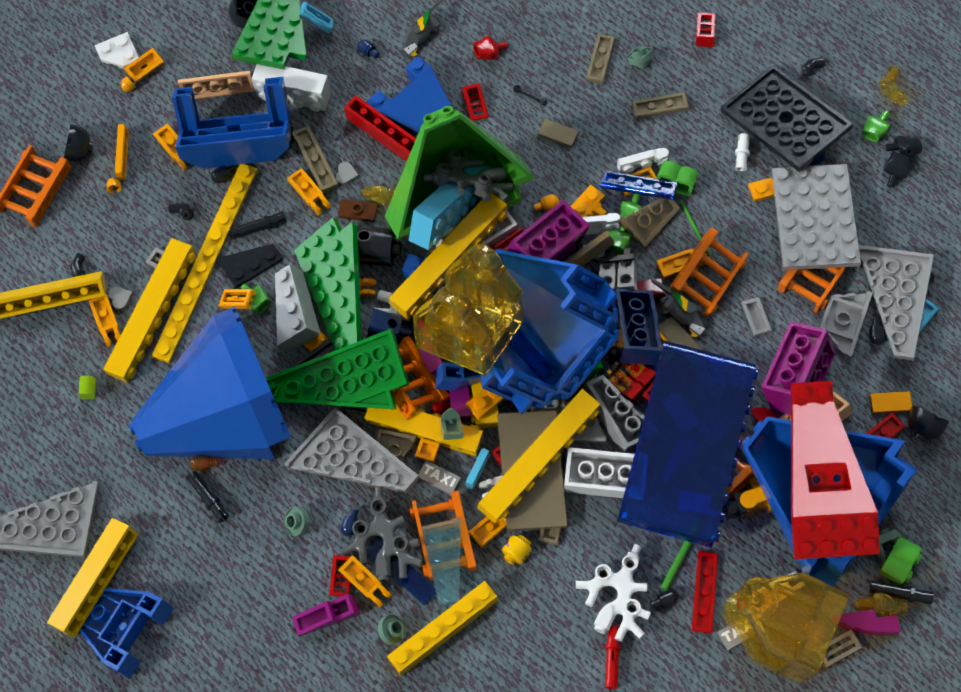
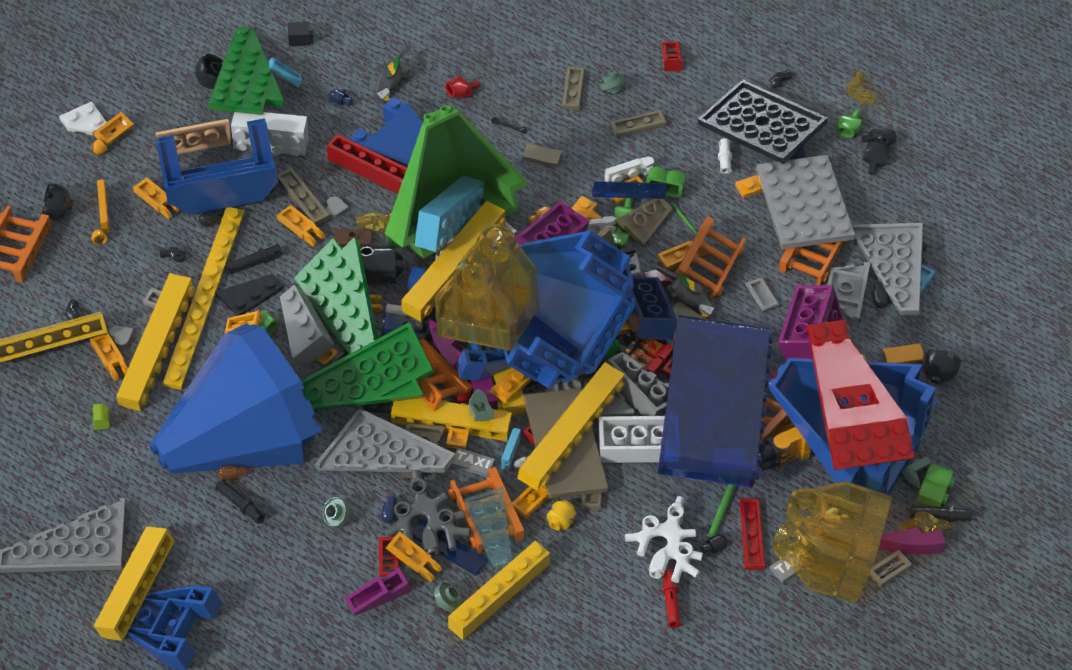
camera: 15 degrees left, 15 degrees down
(453, 172) = (481, 191): dark grey plant -> none

